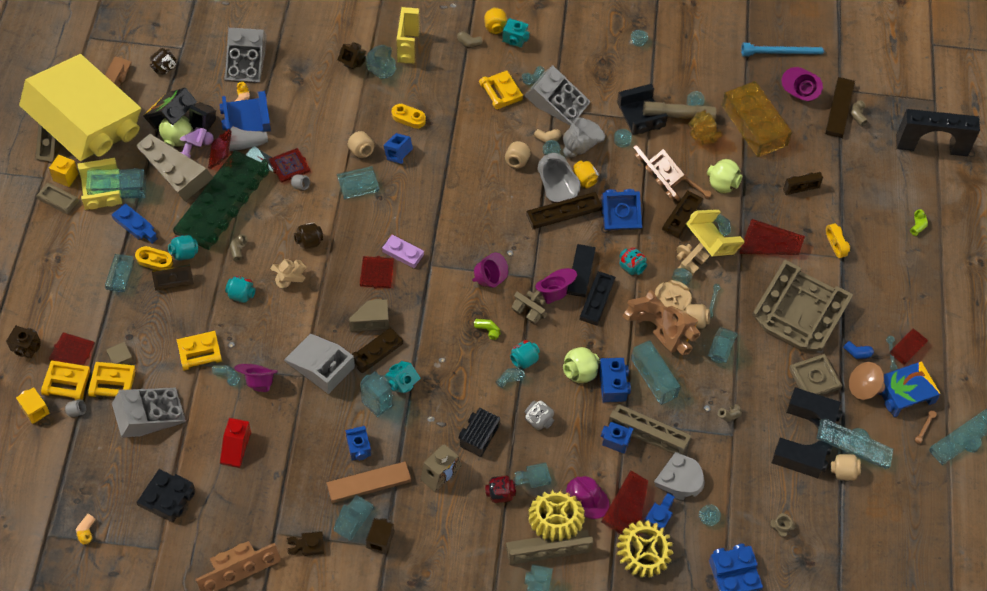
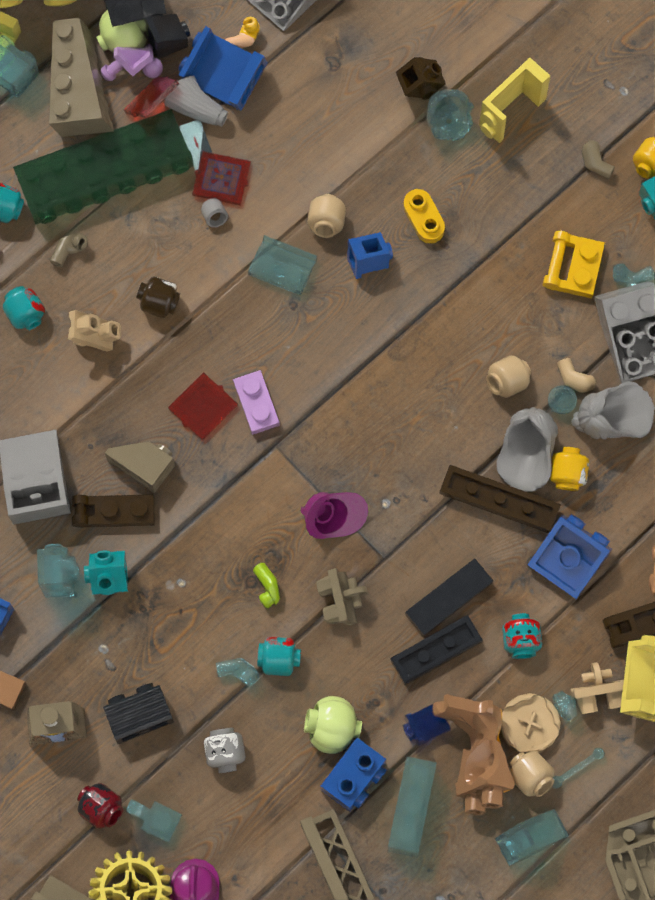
camera: 45 degrees right, 15 degrees up
(555, 285) = (393, 593): magenta piece -> none
(616, 437) = (294, 861): blue brick -> none
(625, 333) = (424, 726): none -> clear blue bracket

